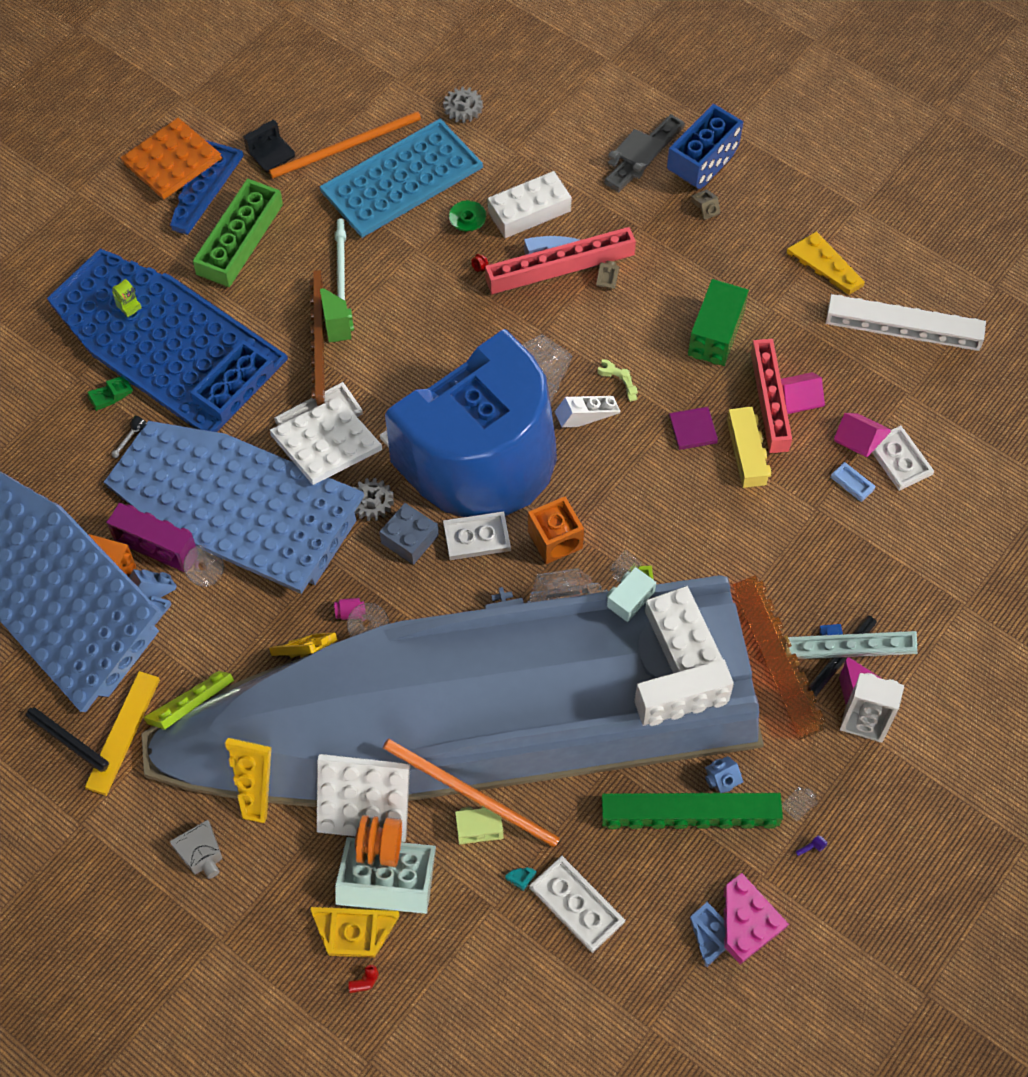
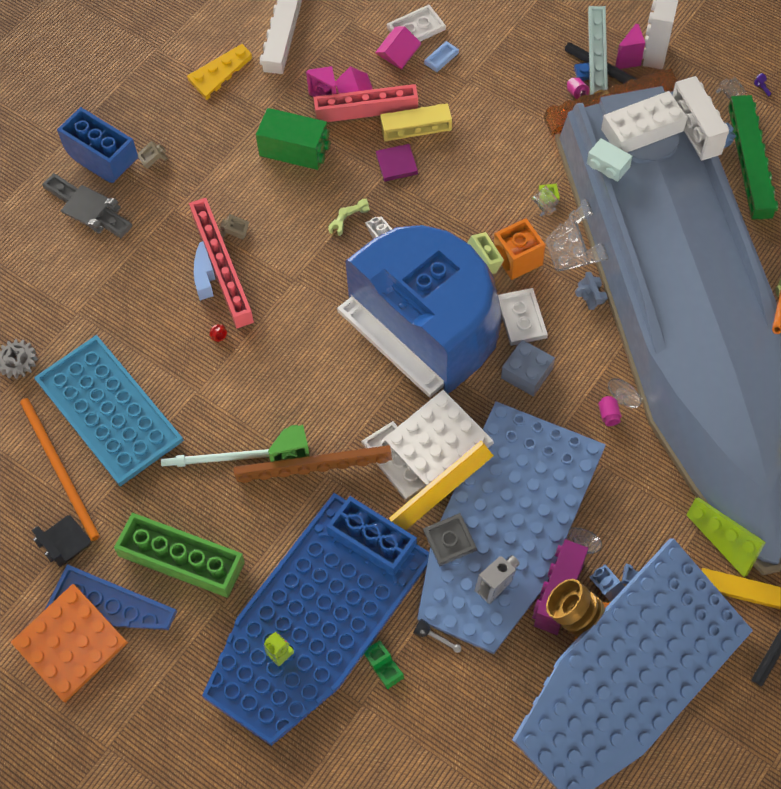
camera: 90 degrees left, 0 degrees up
(107, 522) = (574, 607): none -> pearl gold wheel
(164, 474) = (496, 578): none -> light grey torso
(216, 444) = (449, 539): none -> dark grey tile
(272, 438) = (442, 486): none -> yellow tile
(304, 645) = (659, 435): yellow wing -> none
(373, 496) = (490, 396): light grey gear -> none
(467, 210) = (158, 339): green dish -> none
(529, 204) = (150, 292): white brick -> none
(551, 359) = (325, 279): clear wing -> none
(565, 489) = (487, 251): none -> yellowish green brick
(794, 355) = (321, 81): none -> dark pink slope
(798, 620) = (577, 87): none -> dark pink brick

